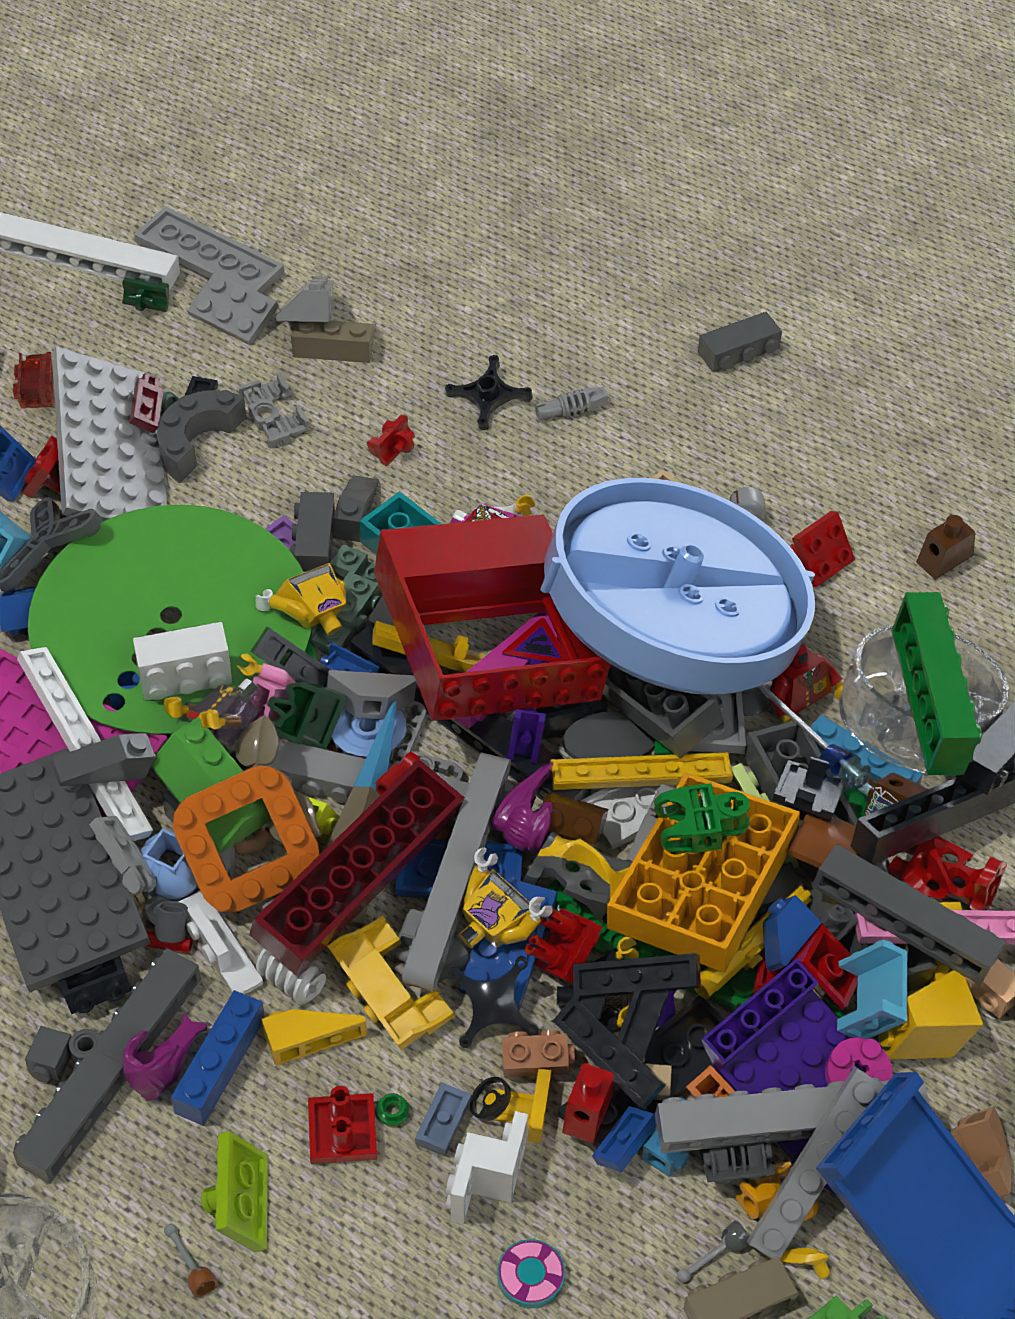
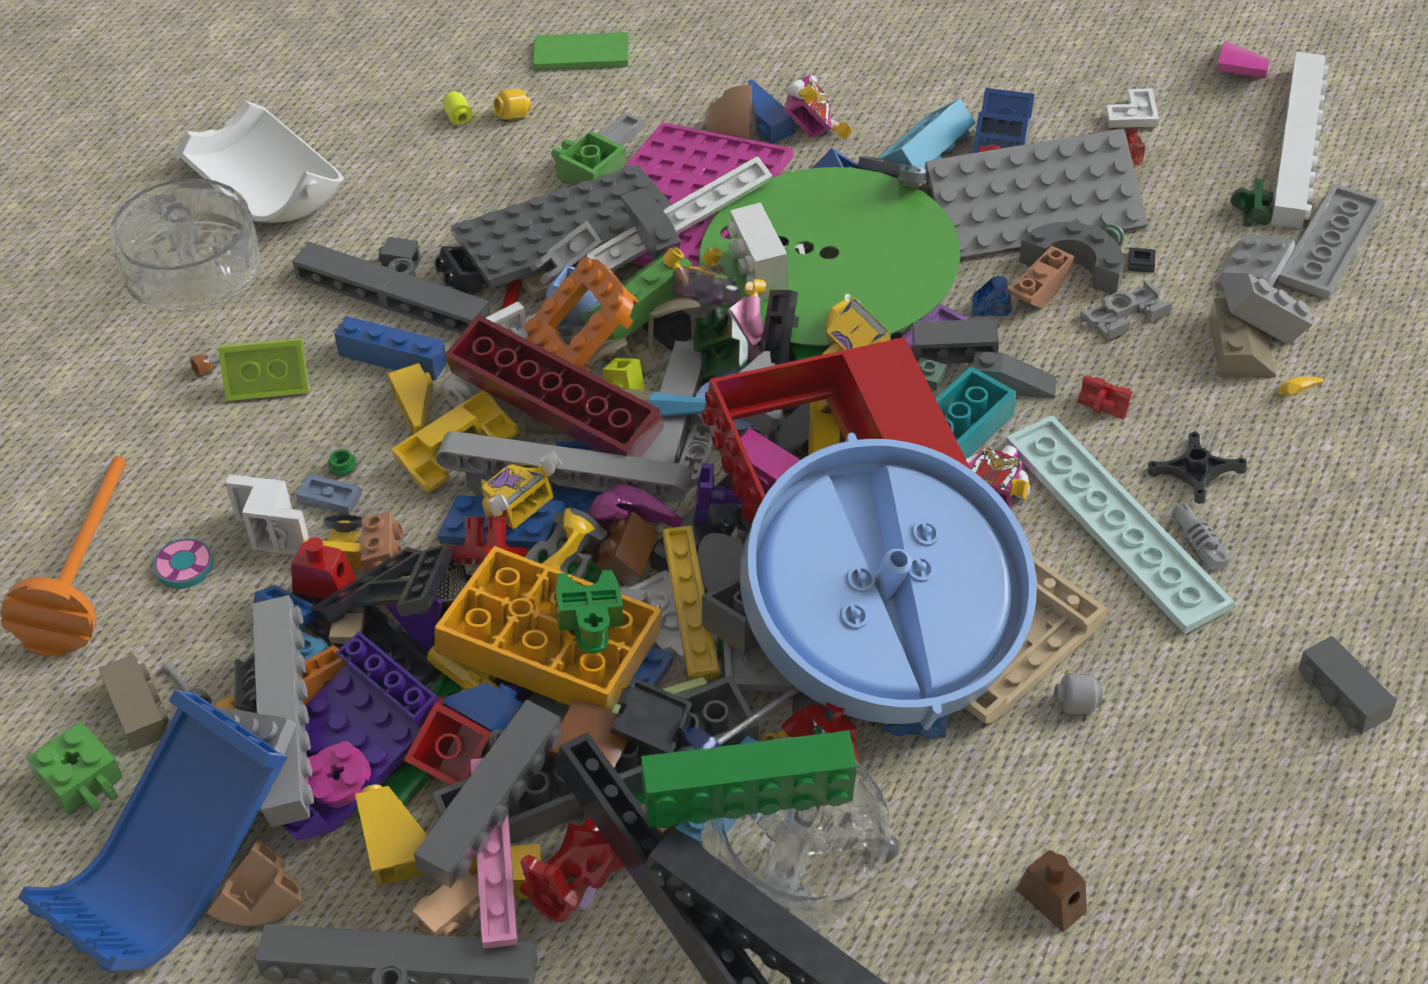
camera: 90 degrees right, 5 degrees down
(146, 403) = (1093, 210): hinge -> none
(156, 1070) = (376, 305): magenta hair -> none
(167, 918) = (529, 297): dark grey piece -> none
(227, 459) = (1043, 278): none -> nougat slope
(245, 499) = (992, 298): none -> clear blue piece
(342, 1127) = (324, 430): red plate -> none
(393, 314) = (1298, 385): none -> yellow bar
(395, 772) = (671, 422): red bar -> none
(493, 1001) = (431, 507): black piece -> none
(545, 457) = (1120, 525): none -> light aqua plate
(823, 547) = (1021, 759): red plate -> none
(879, 990) = (376, 770): medium azure panel -> none

